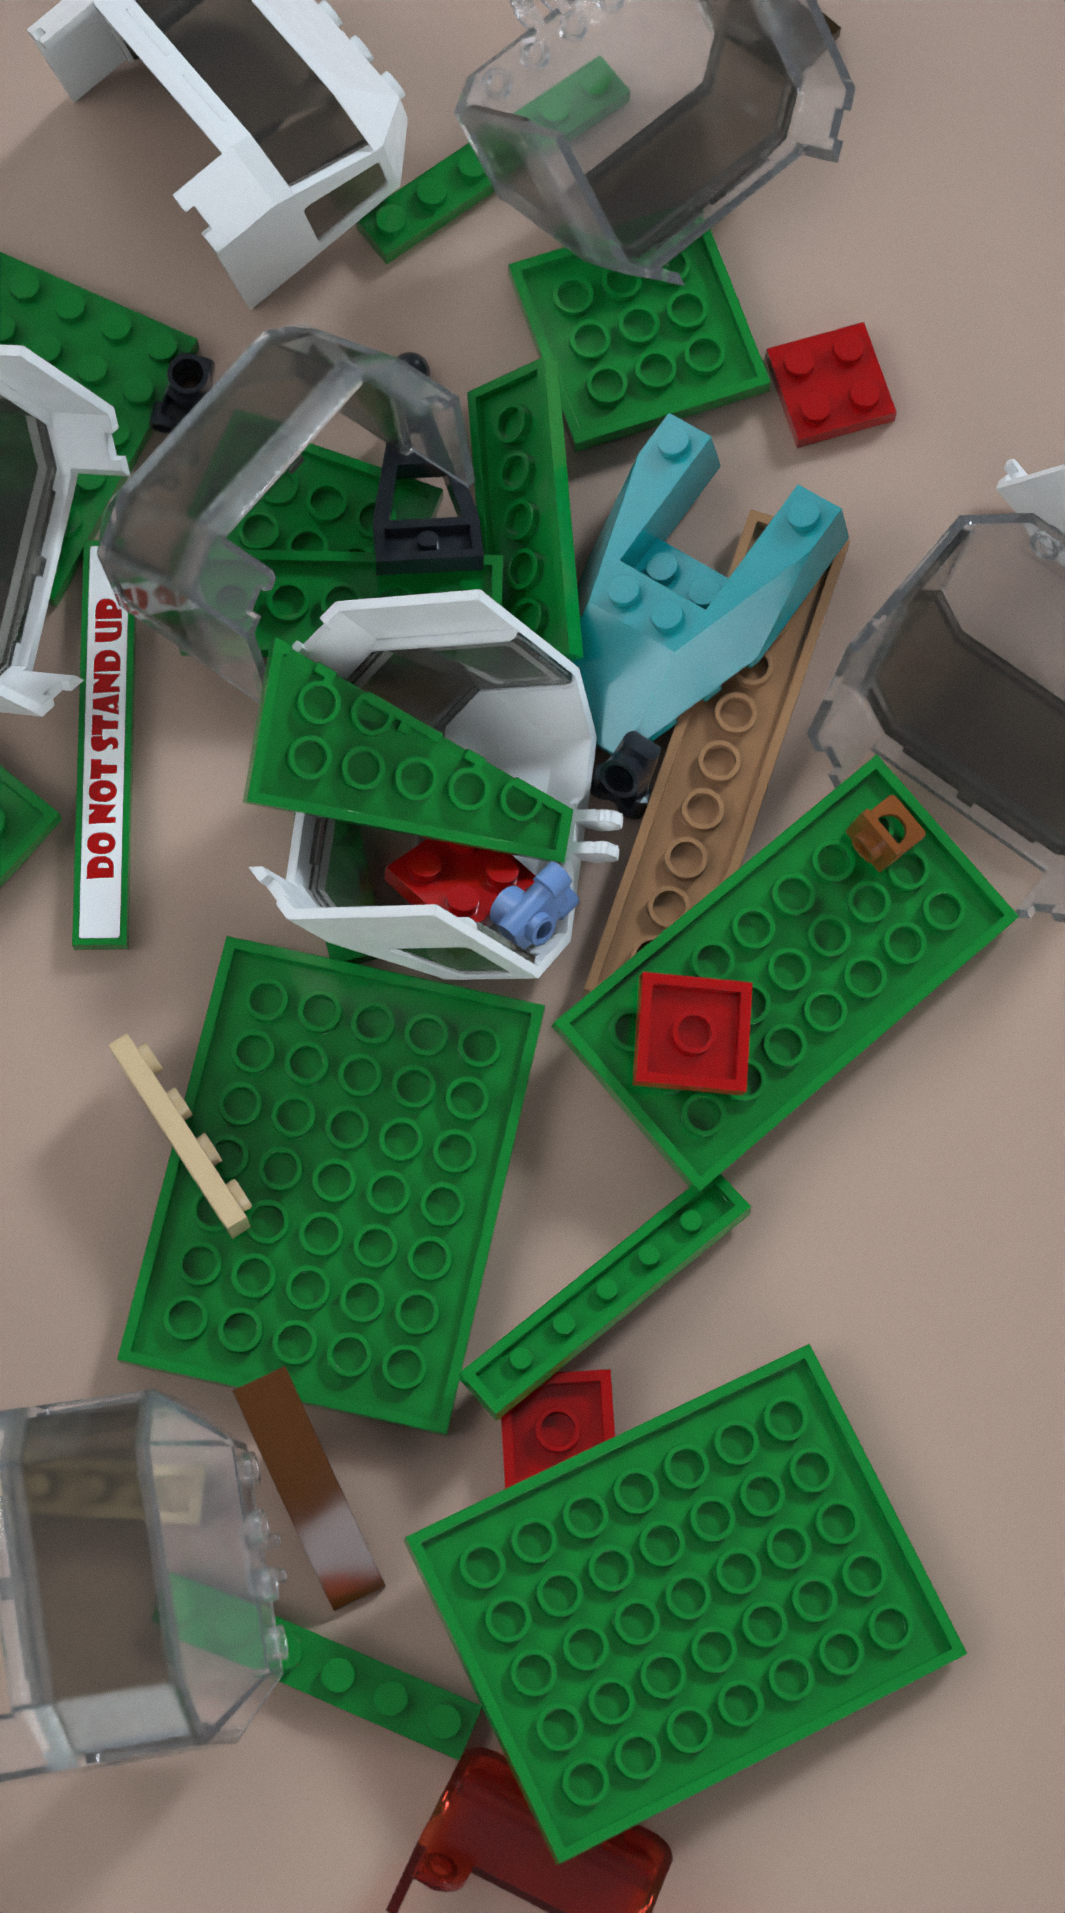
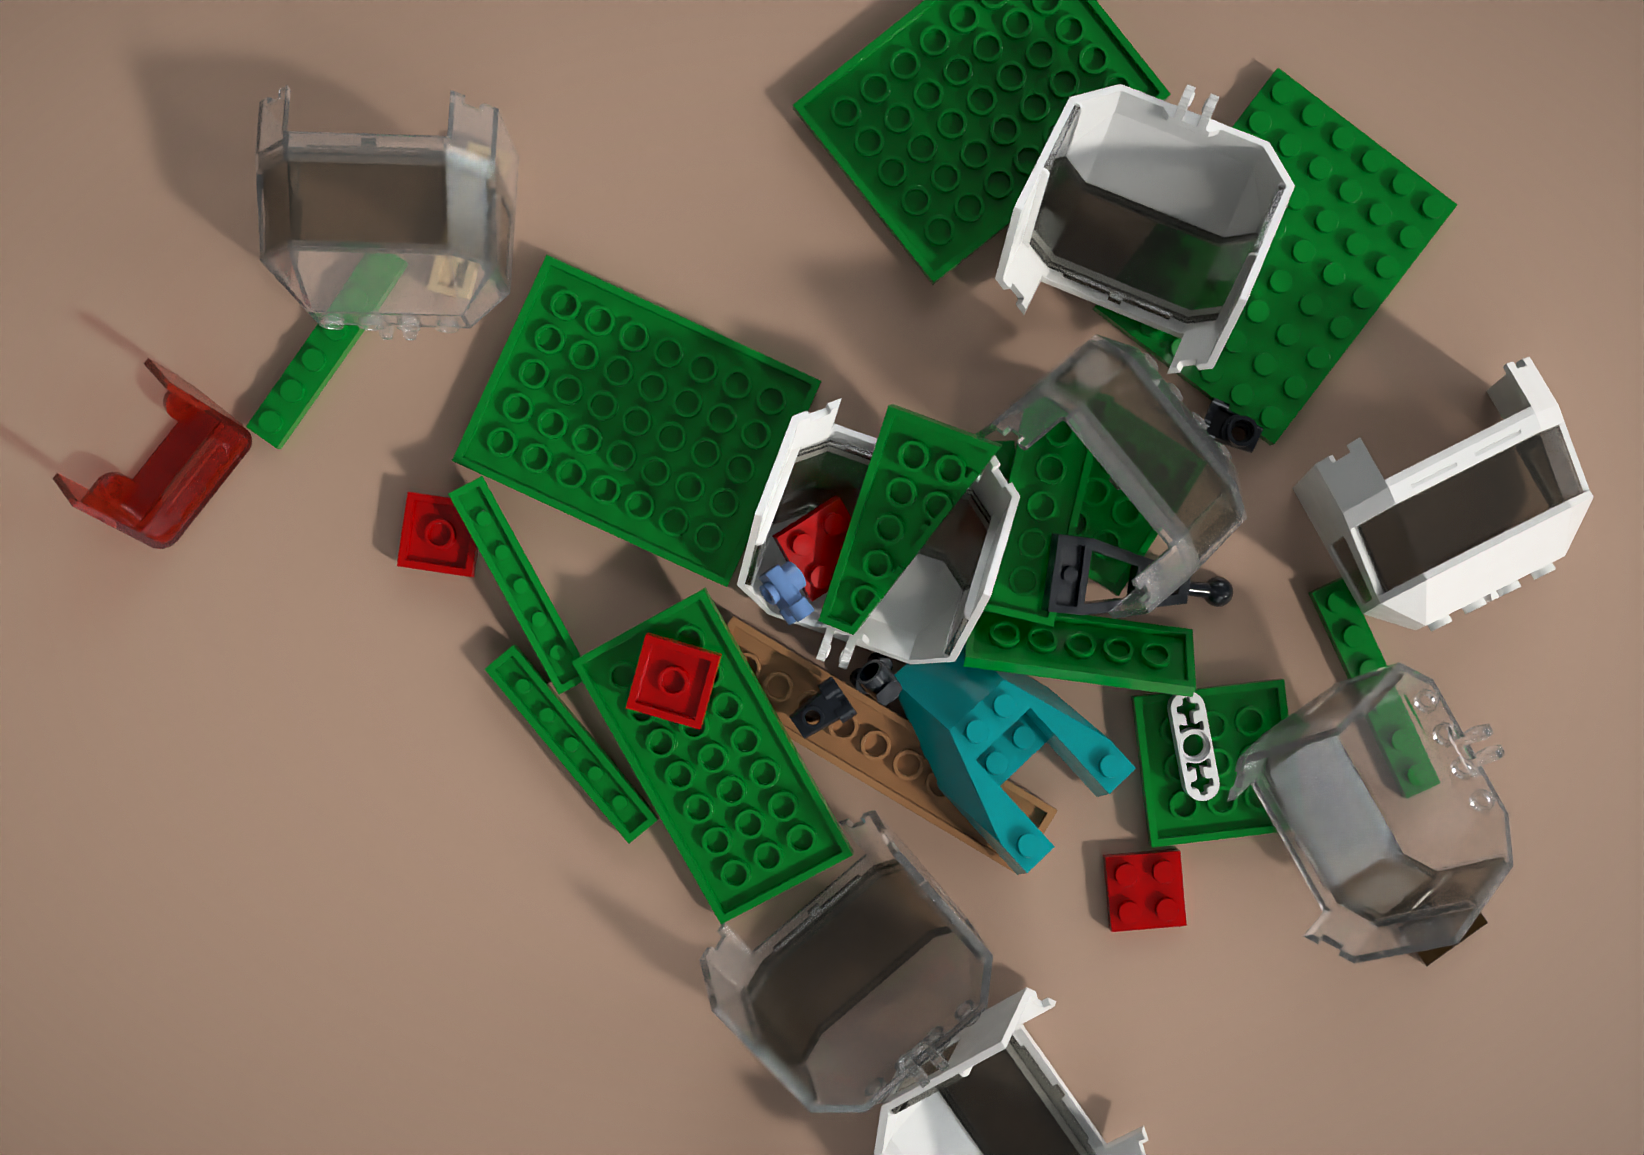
camera: 105 degrees right, 15 degrees up
(103, 764) = (963, 319): tile -> none
(170, 1114) = (697, 317): tan plate -> none
(309, 1488) = (433, 362): reddish brown slope -> none
(662, 353) = (1189, 774): none -> white beam
(677, 821) = (829, 703): none -> black plate
(683, 1601) = (308, 591): green plate -> none
(816, 1178) = (572, 743): none -> green plate
(875, 842) = (785, 834): dark orange bracket -> none

